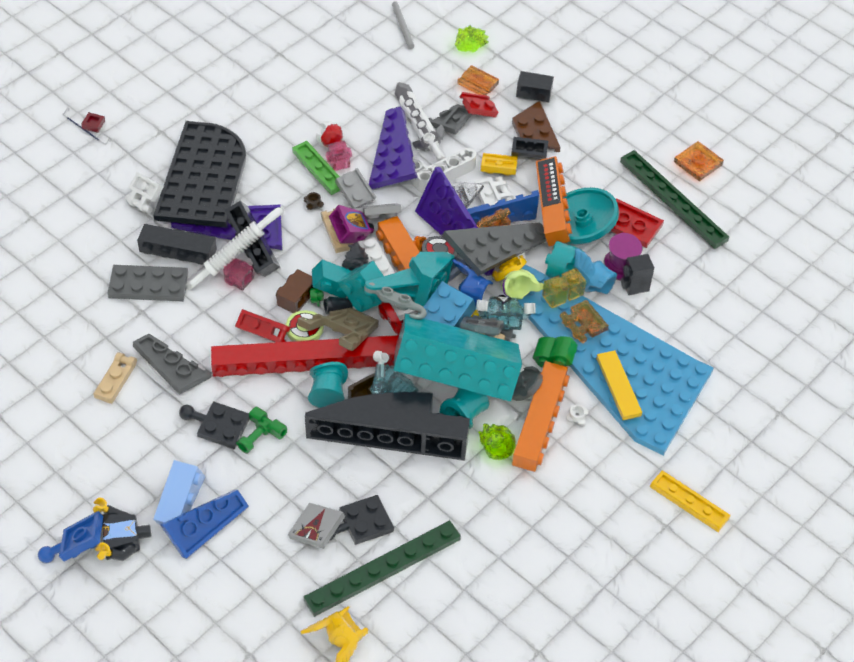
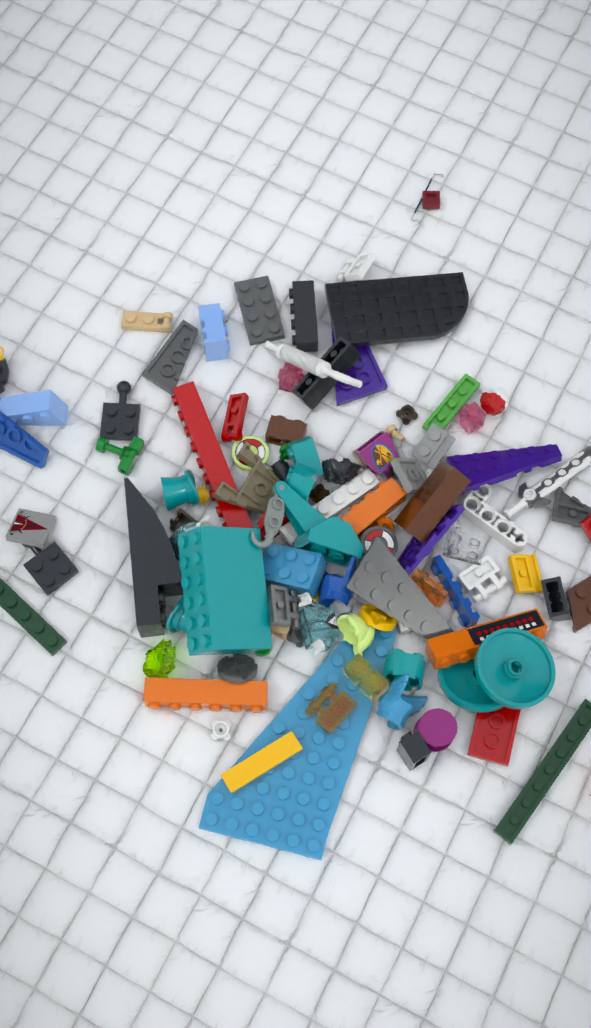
camera: 75 degrees right, 15 degrees up
(159, 319) = (214, 332): none -> light blue wedge
(418, 193) = (432, 501): none -> reddish brown brick
(555, 350) = (283, 688): green brick -> none
(589, 181) = (514, 668): none -> teal dish
(690, 501) = (147, 866): yellow tile -> none

